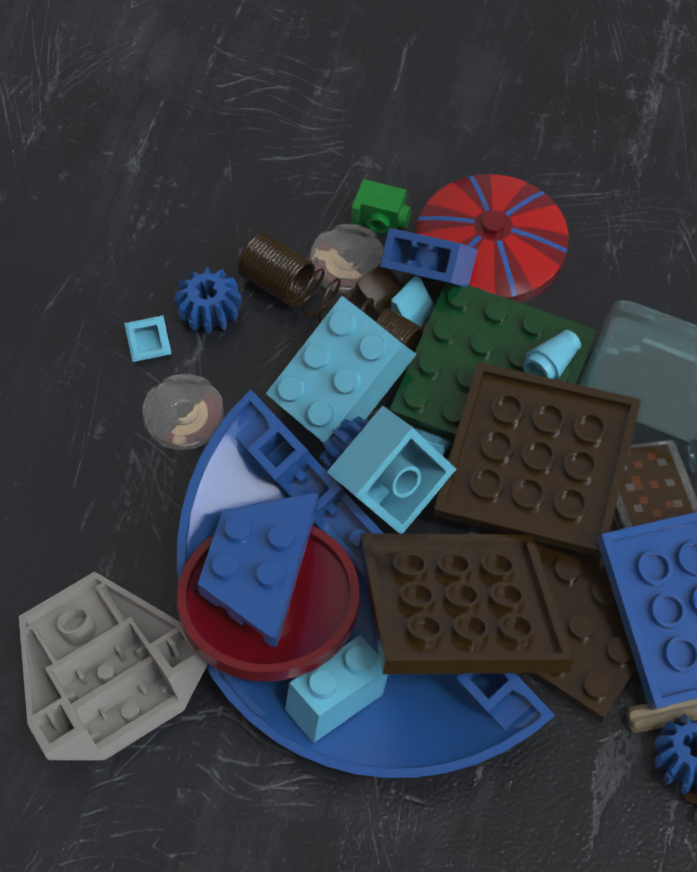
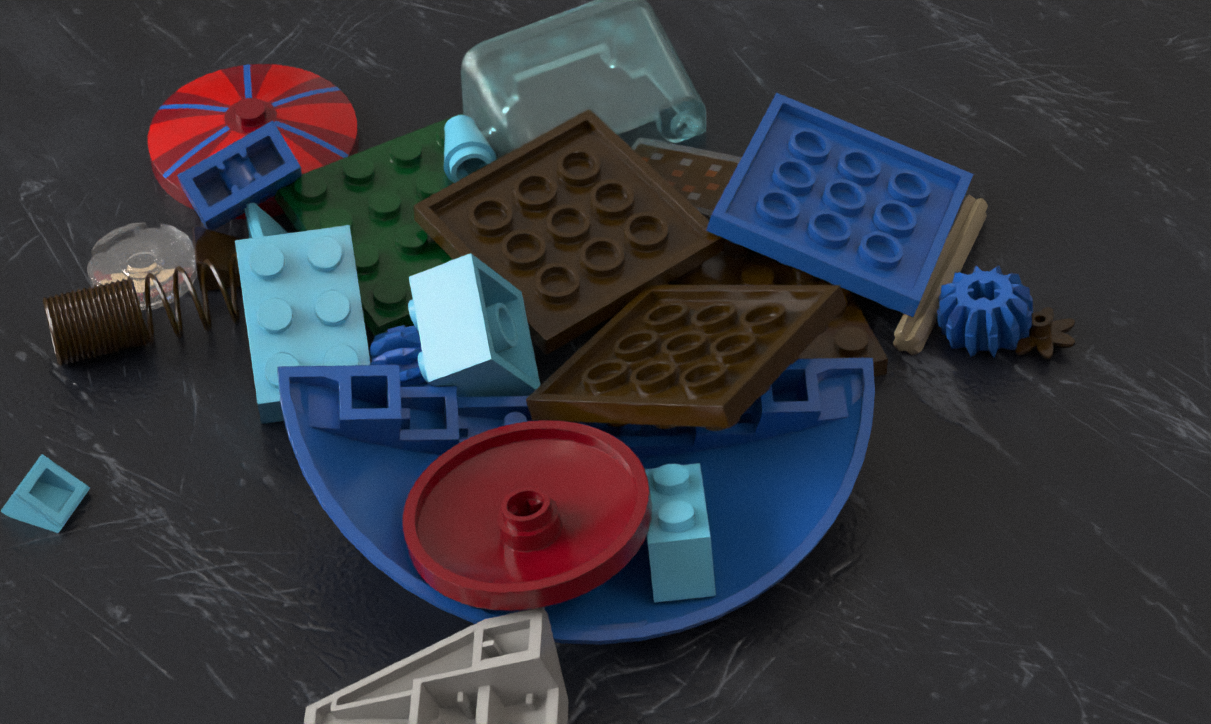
camera: 55 degrees left, 15 degrees down
(183, 412) = (181, 516): clear tile -> none
(208, 300) = (64, 406): blue gear -> none
(258, 561) = (483, 491): blue wing -> none
(380, 207) = (116, 195): green brick -> none

